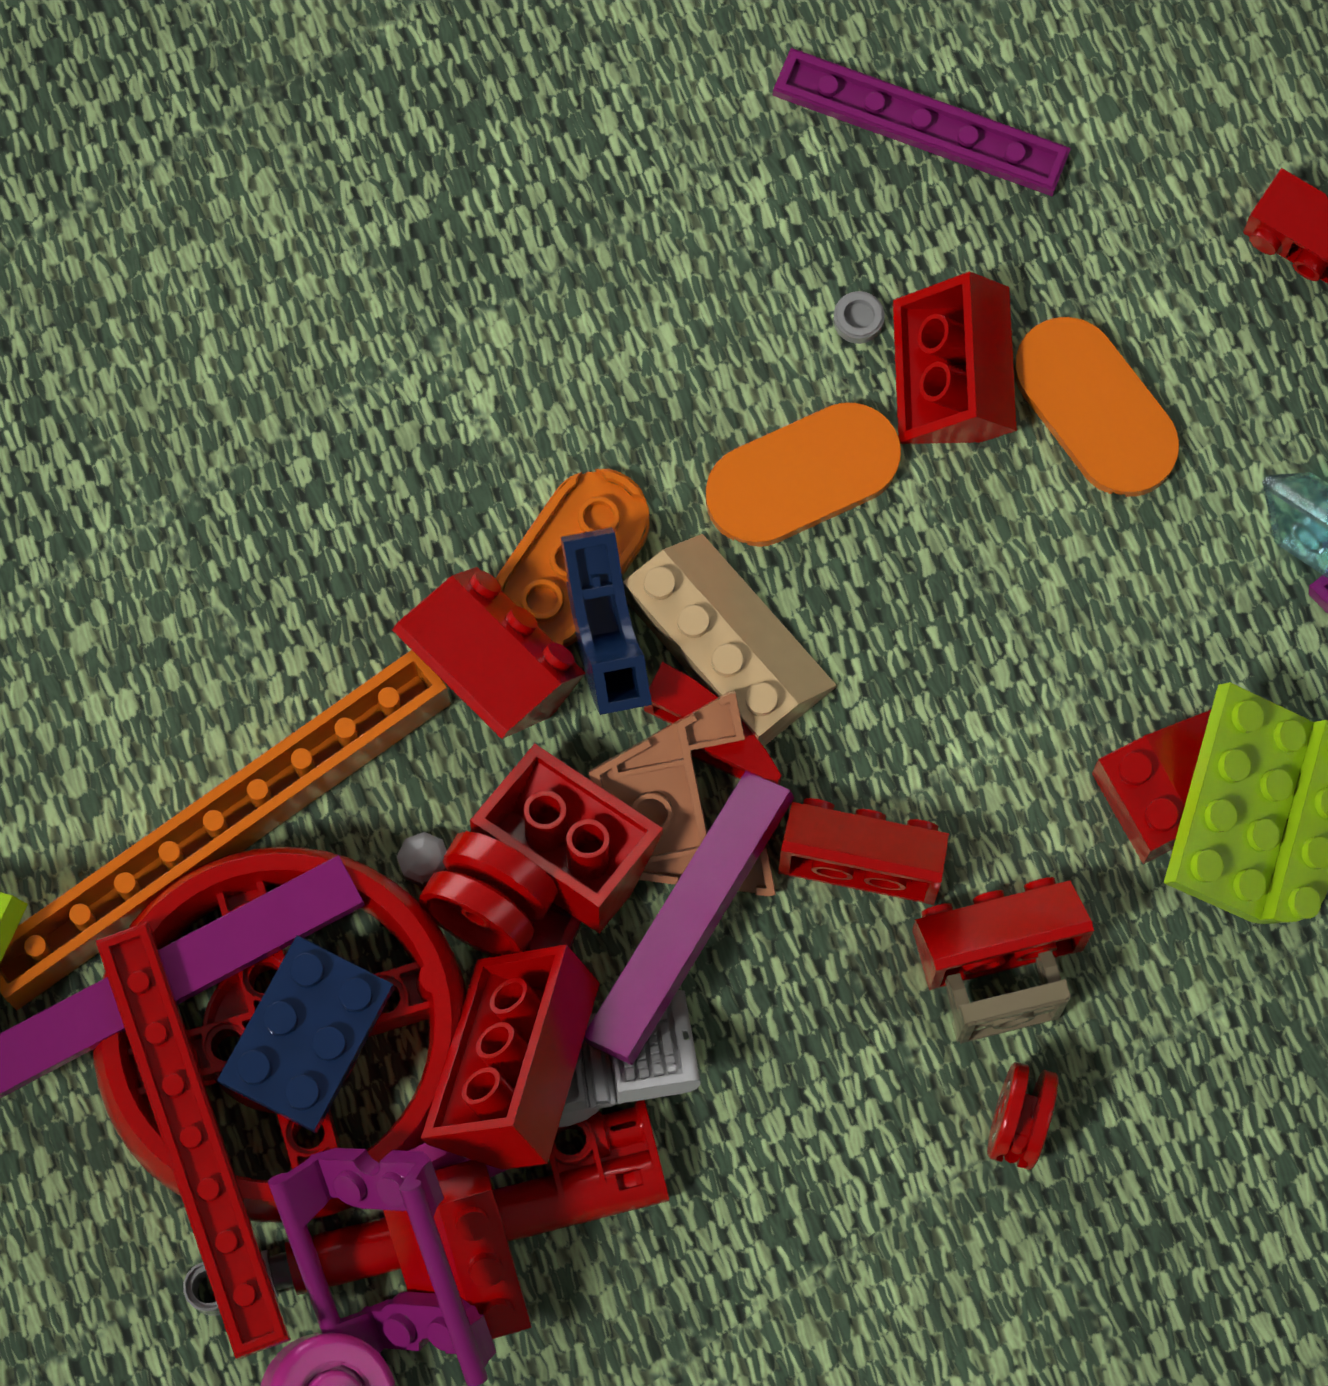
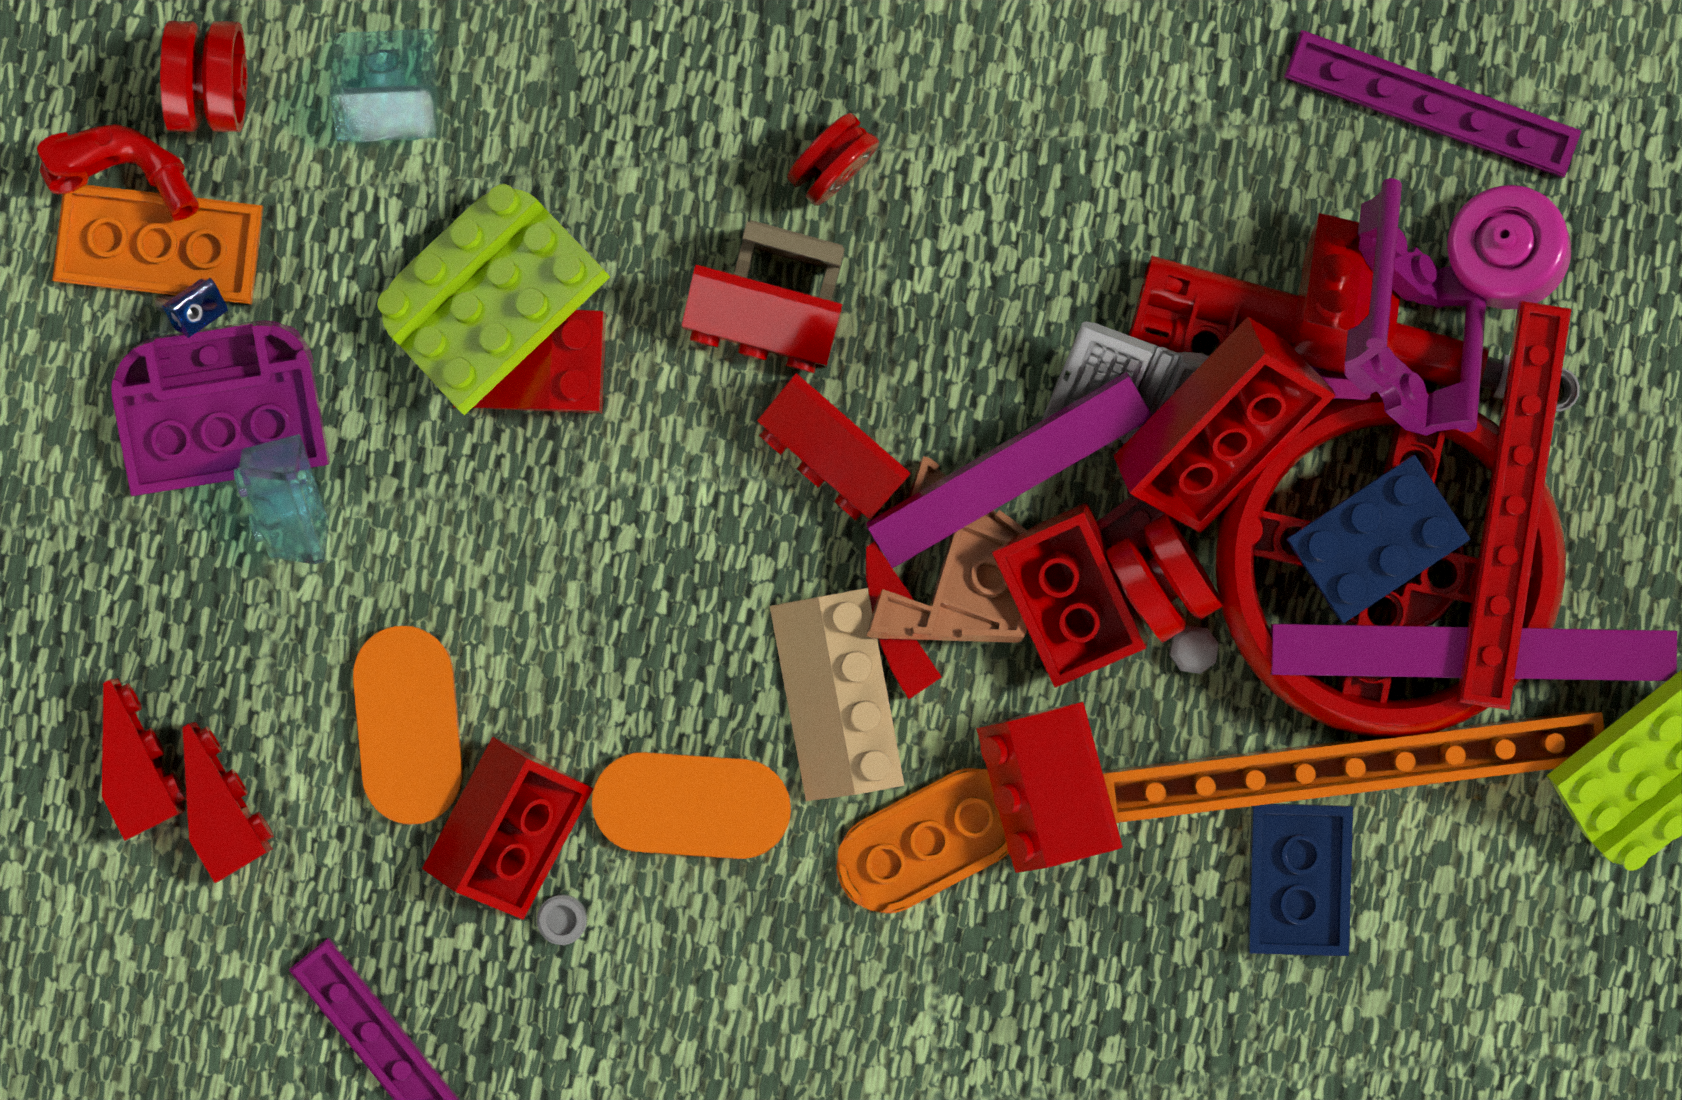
camera: 155 degrees left, 15 degrees up
(208, 703) = (1300, 879): none -> dark blue plate
(603, 623) = (940, 755): dark blue arch -> none
(1212, 236) = (218, 818): none -> red slope

